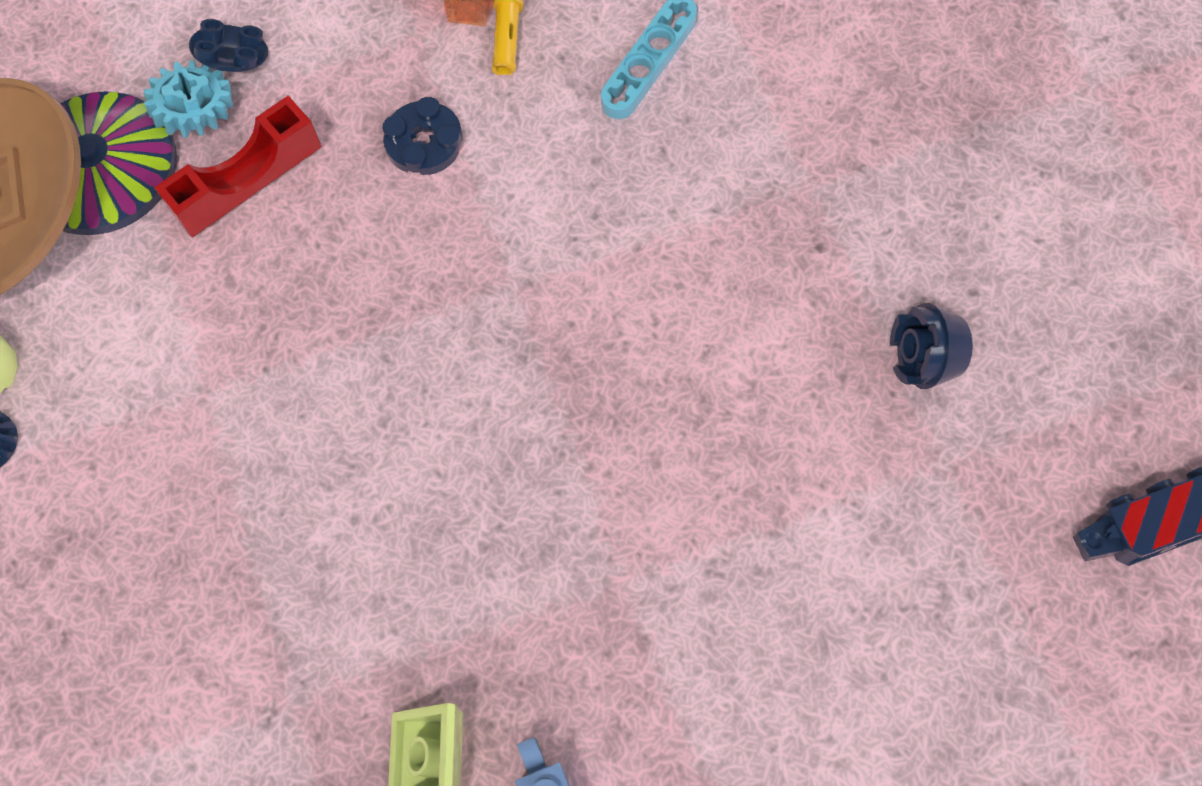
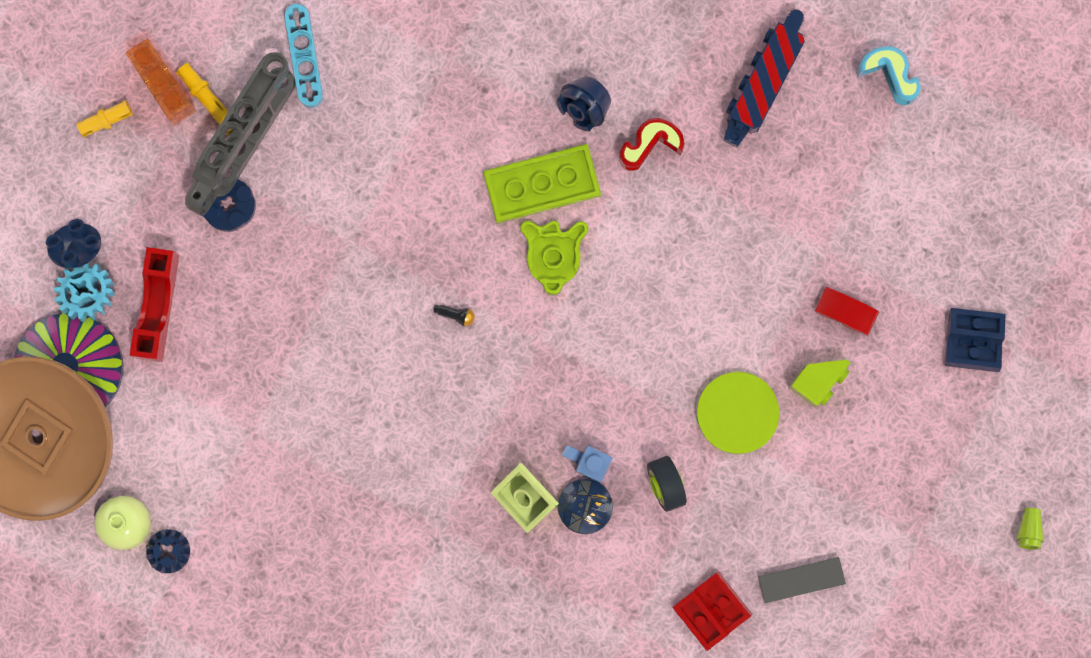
camera: 45 degrees left, 15 degrees up
(556, 59) = (263, 103): none -> dark grey piece
(559, 471) = (463, 316): none -> black piece
(734, 493) = (553, 254): none -> lime tile
(795, 402) = (542, 183): none -> lime tile
(975, 452) = (646, 138): none -> red animal

